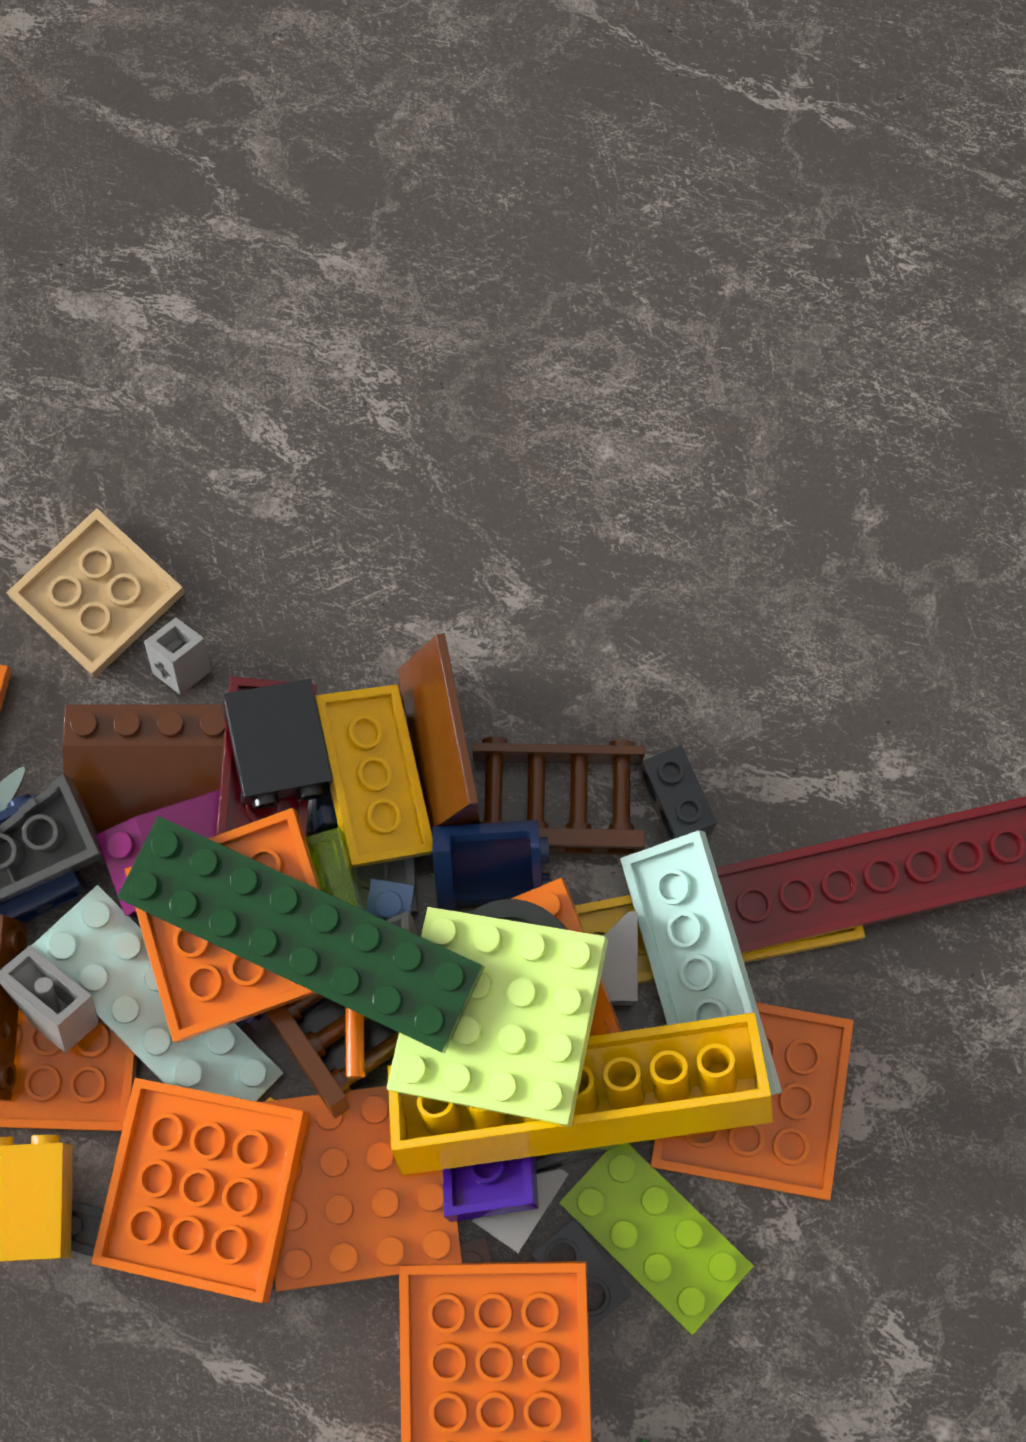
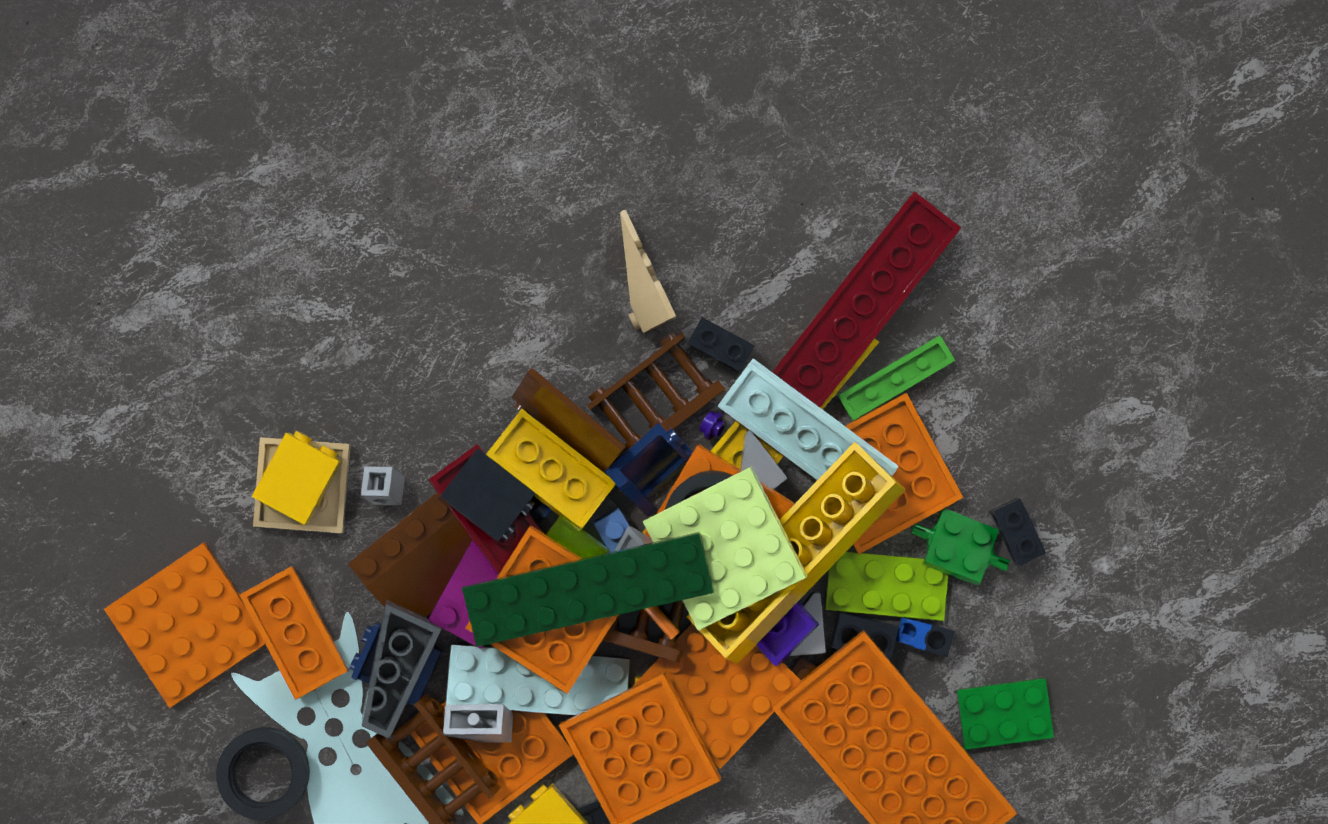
camera: 35 degrees left, 15 degrees up
(95, 573) = (297, 477): none -> yellow brick
(596, 880) = (713, 425): none -> dark purple plate
(636, 679) = (646, 293): none -> tan wedge
(655, 1336) = (925, 636): none -> leg
(781, 1259) = (960, 546): none -> green plate
(854, 994) = (896, 378): none -> bright green plate
(867, 1296) = (1017, 531): none -> black brick

